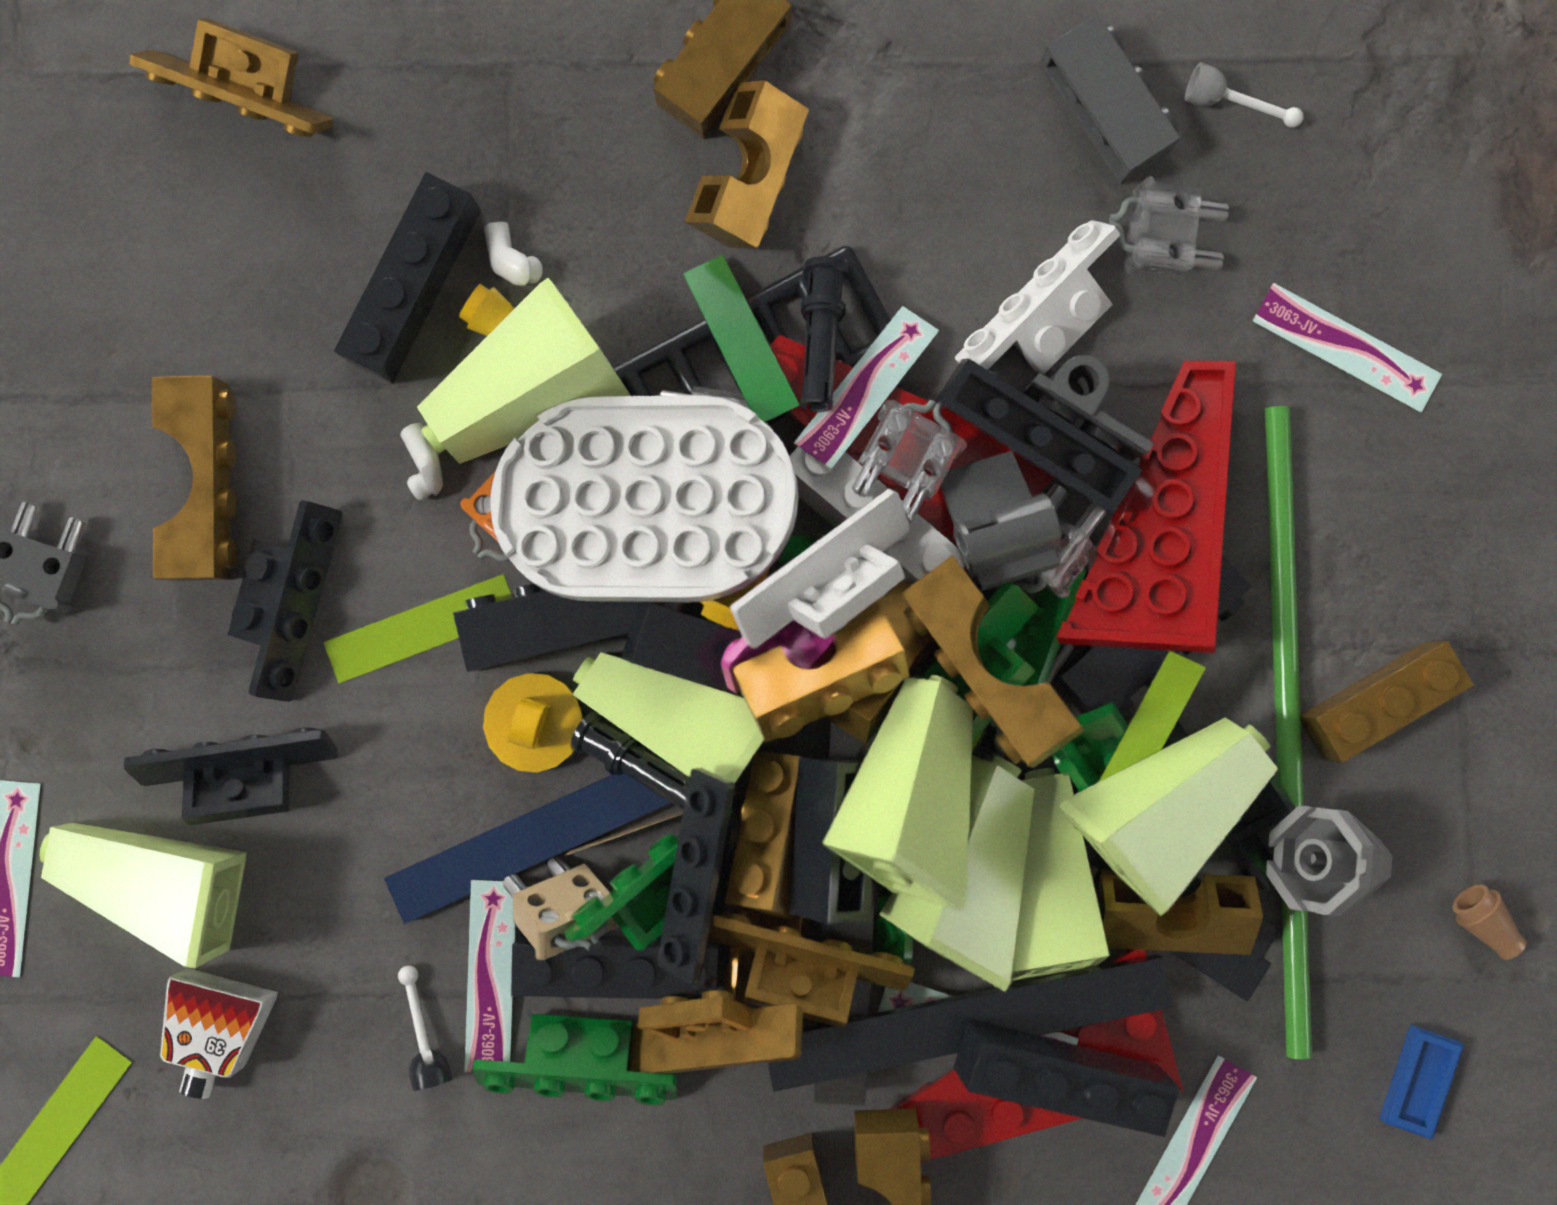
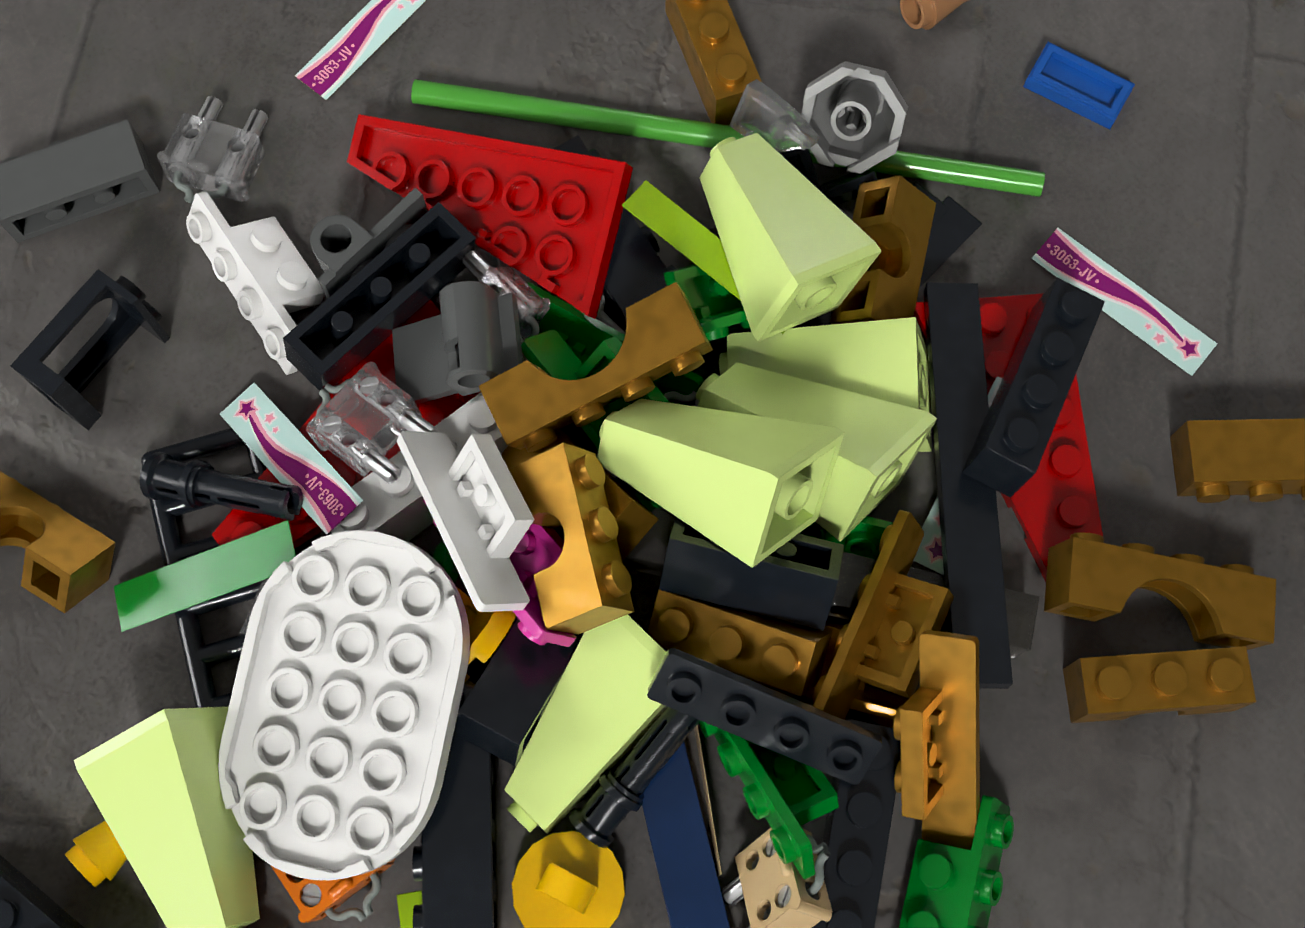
camera: 80 degrees left, 15 degrees down
(507, 261) = (50, 821): white arm -> none
(894, 153) = (126, 316): none -> black panel
(1209, 86) = (89, 93): hinge -> none
(1301, 779) = (773, 119): none -> clear slope

